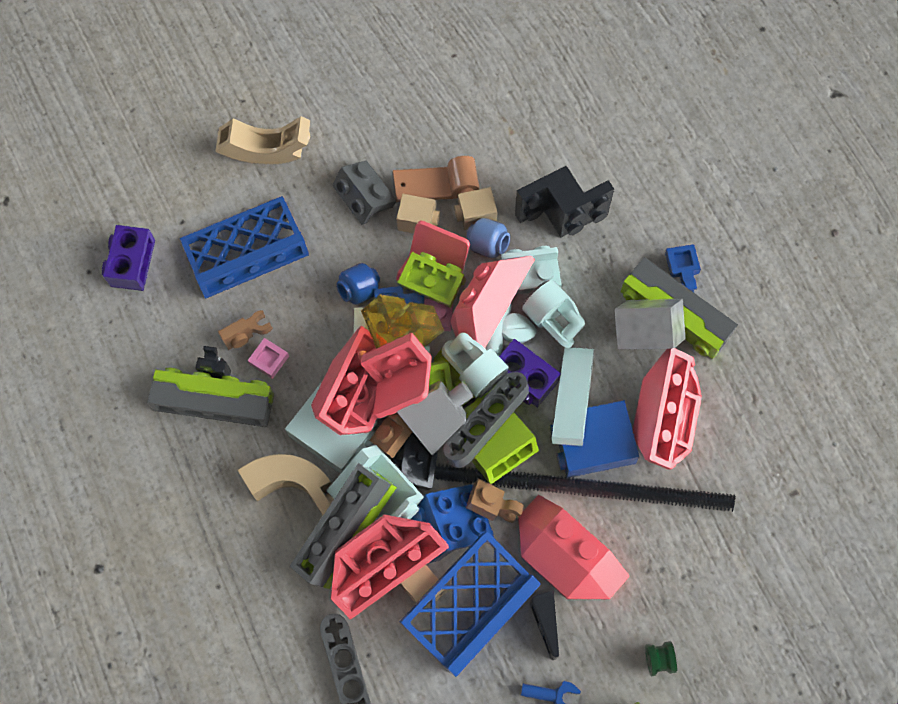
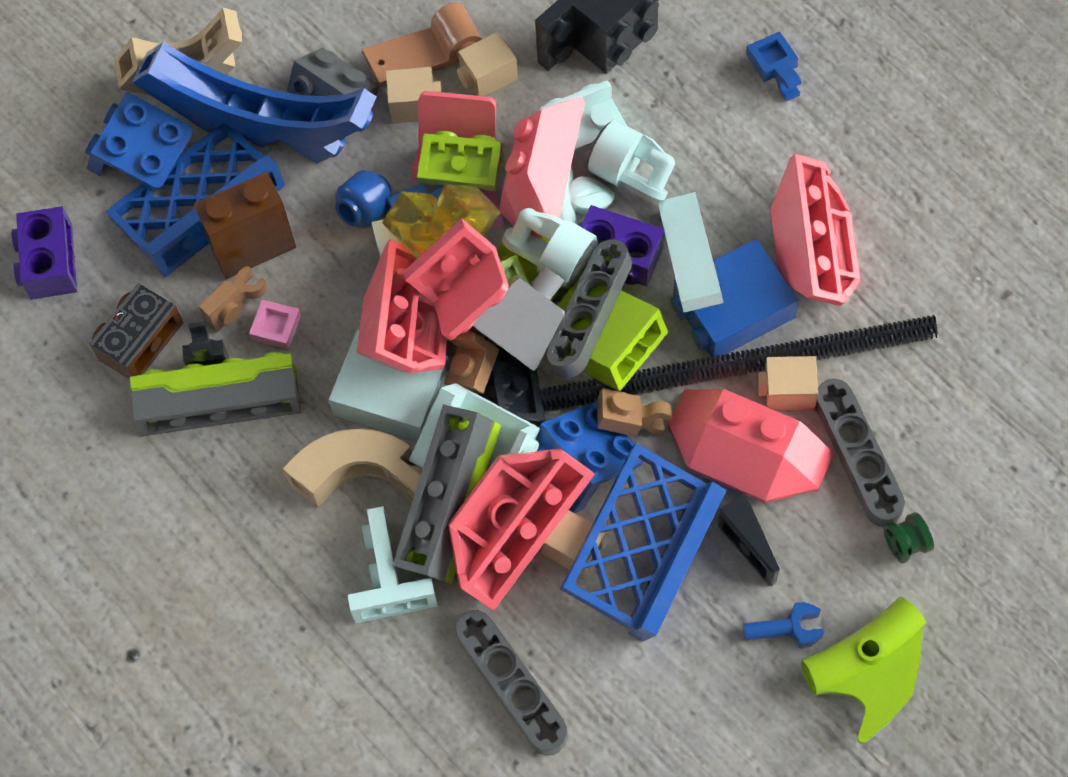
camera: 15 degrees left, 5 degrees down
(171, 335) = (136, 332): none -> brick
(216, 195) = (138, 142): none -> blue bracket
(267, 282) = (245, 225): none -> reddish brown brick
(276, 180) = (209, 99): none -> blue arch
(284, 585) = (390, 596): none -> light aqua bracket
(488, 238) = (515, 95): medium blue head -> none
(613, 515) = (789, 383): none -> tan brick
(643, 581) = (853, 453): none -> dark grey beam
(650, 324) = (758, 136): flat silver piece -> none
(704, 324) = (785, 113): piece -> none

